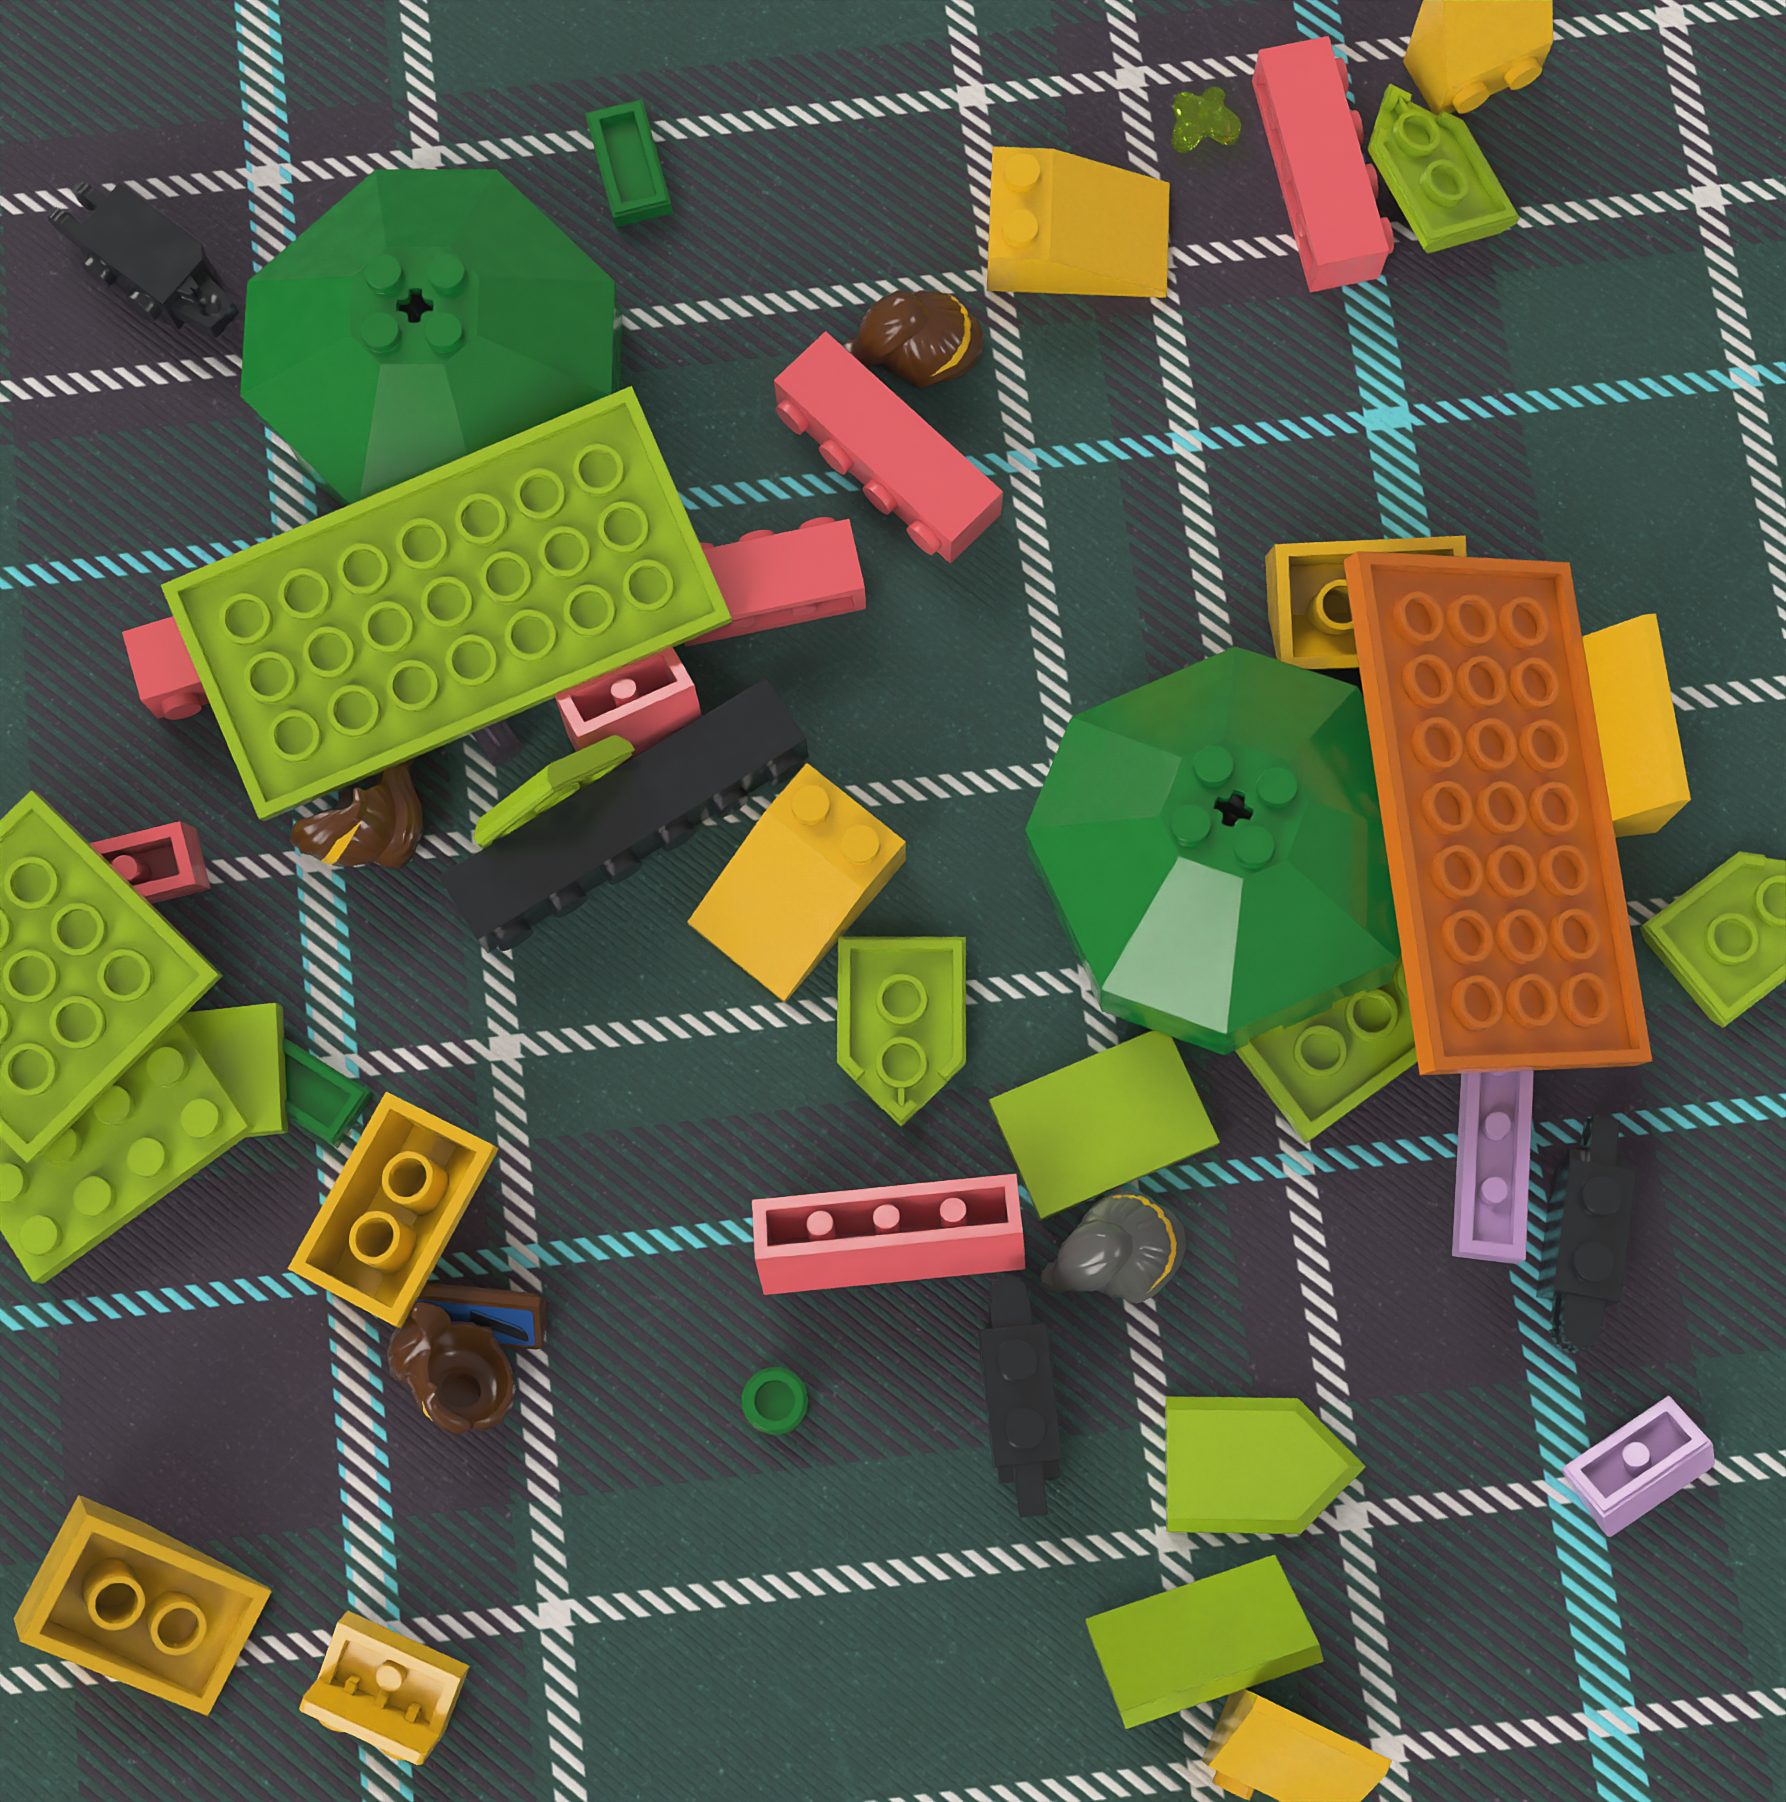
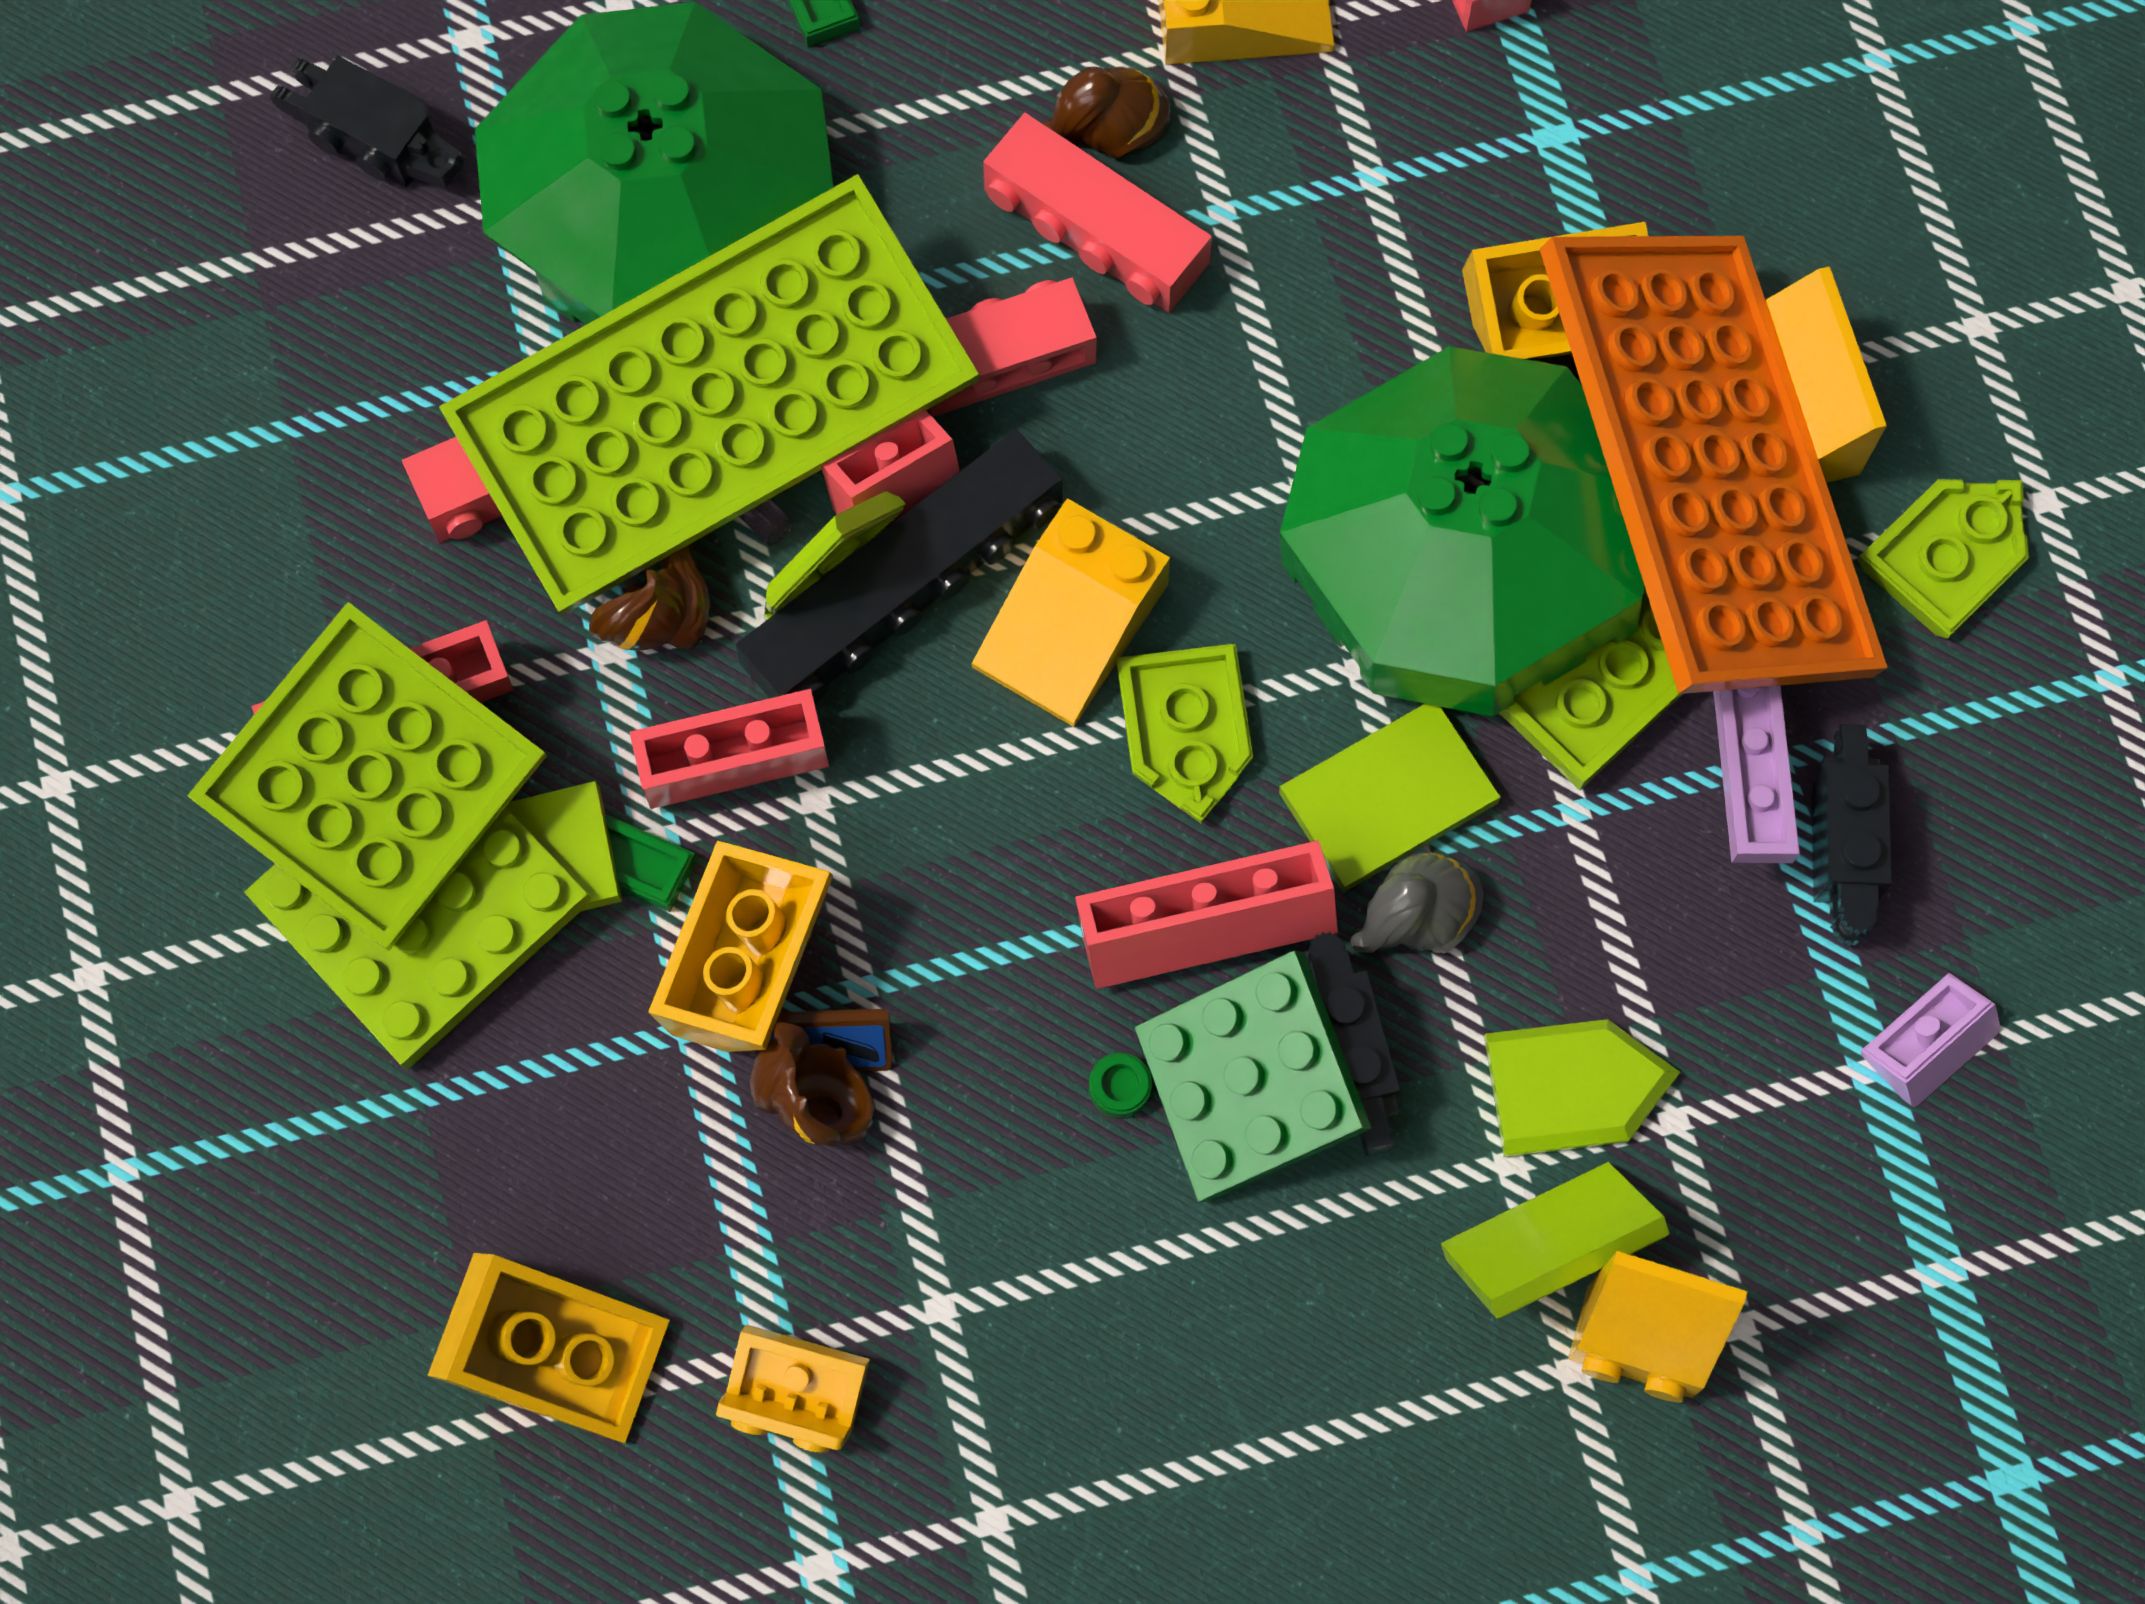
camera: 10 degrees left, 5 degrees down
(416, 988) = (729, 749): none -> coral brick
(910, 1419) = (1252, 1077): none -> plate

